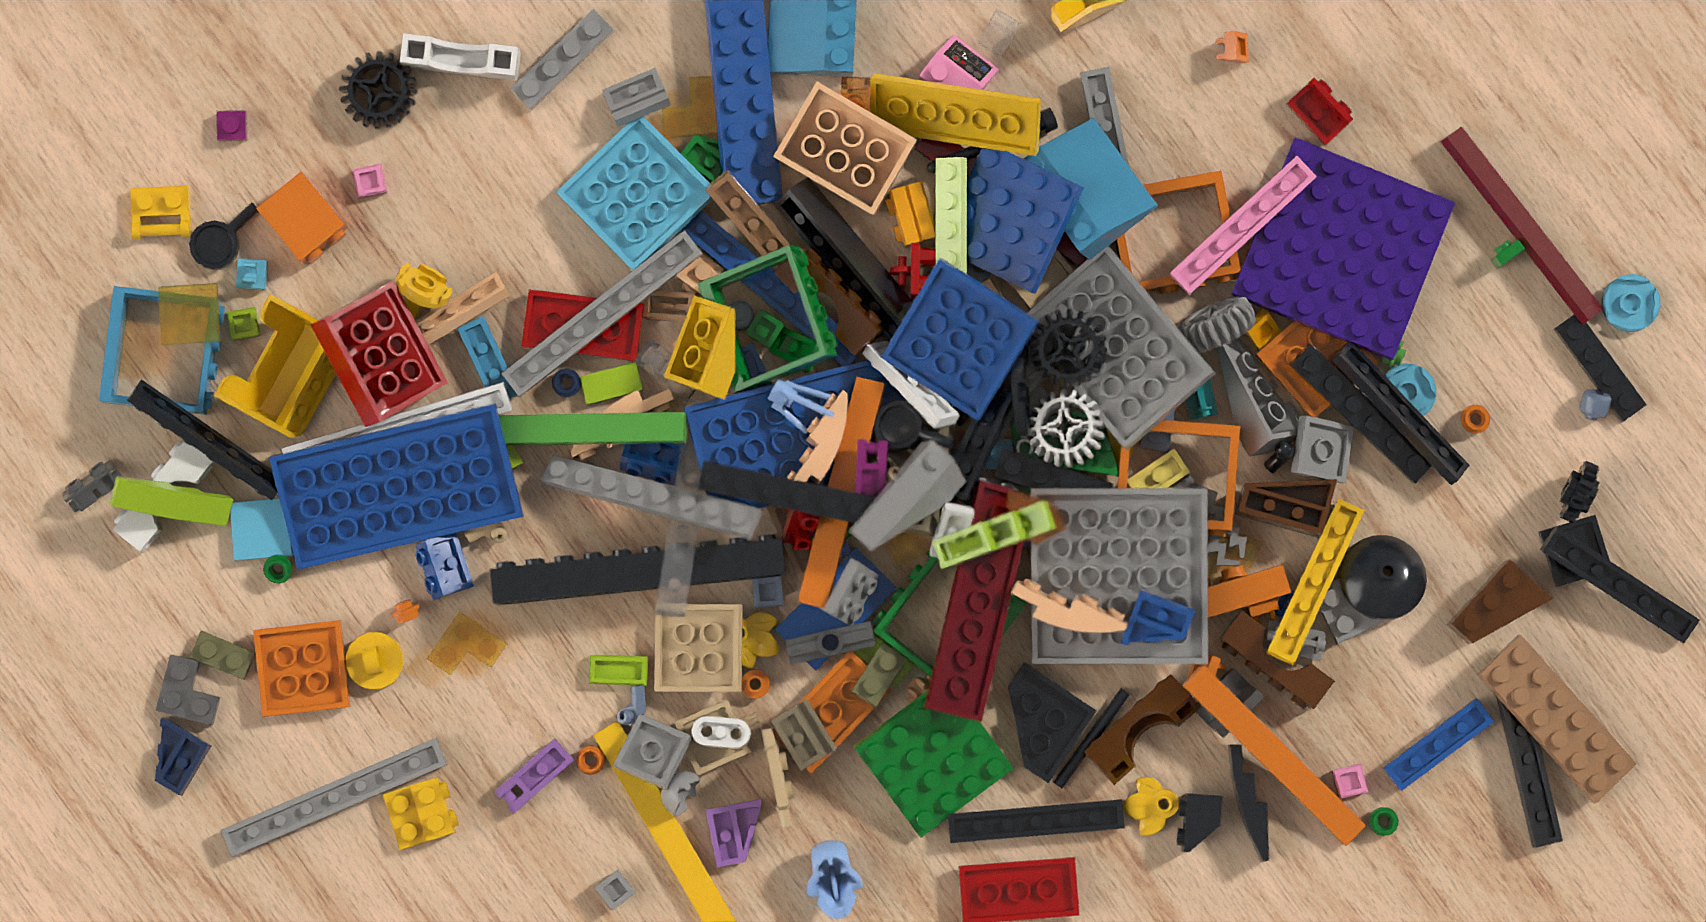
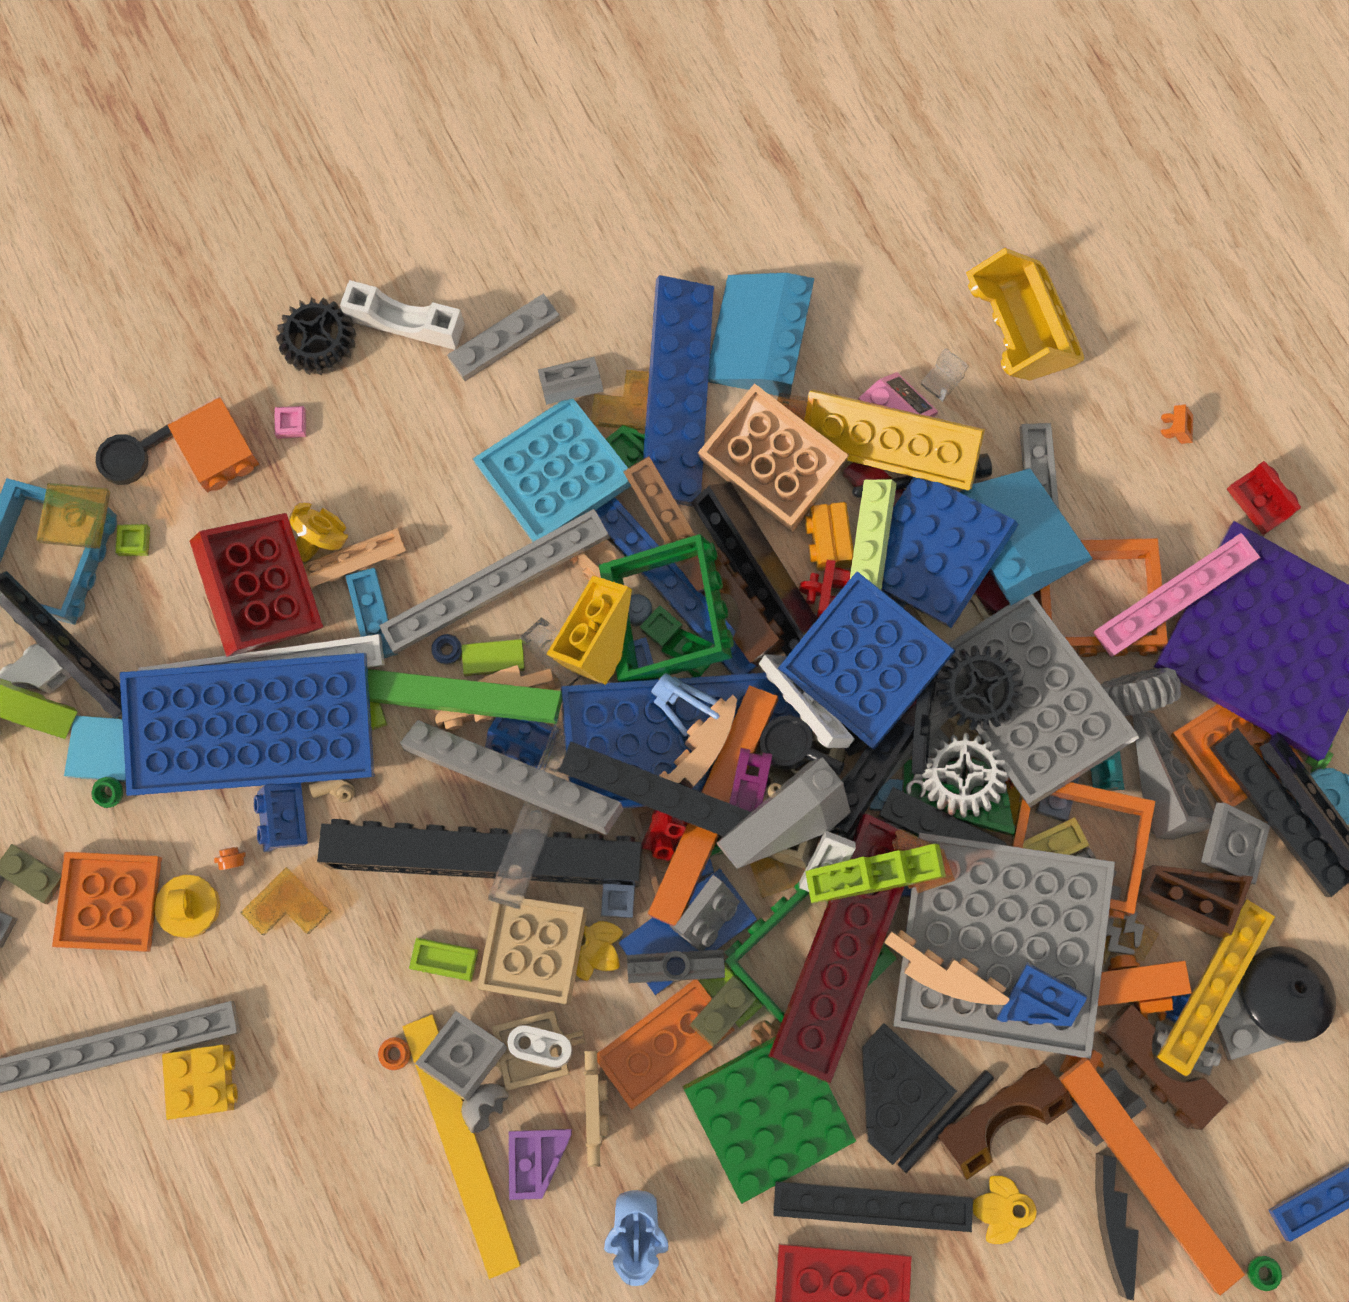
camera: 10 degrees right, 10 degrees down
(160, 202) = (77, 411): yellow plate -> none
(232, 125) = (166, 349): magenta plate -> none
(251, 274) = (152, 493): medium azure tile -> none
(288, 375) = (161, 598): yellow windscreen -> none
(535, 775) = (330, 1060): medium lavender plate -> none
(551, 310) = (504, 615): red plate -> none
(615, 889) = (392, 1206): light grey plate -> none
(637, 706) = (456, 1002): sand blue arm -> none
(670, 306) = (562, 575): medium nougat tile -> none
(765, 684) = (597, 1002): orange plate -> none
(803, 734) = (630, 1064): dark tan plate -> none
(1200, 819) = (1057, 1236): black slope -> none
(1263, 330) = (1182, 710): light orange plate -> none
(1283, 453) = (1194, 840): black arm -> none
(1349, 781) = (1229, 1219): bright pink tile -> none

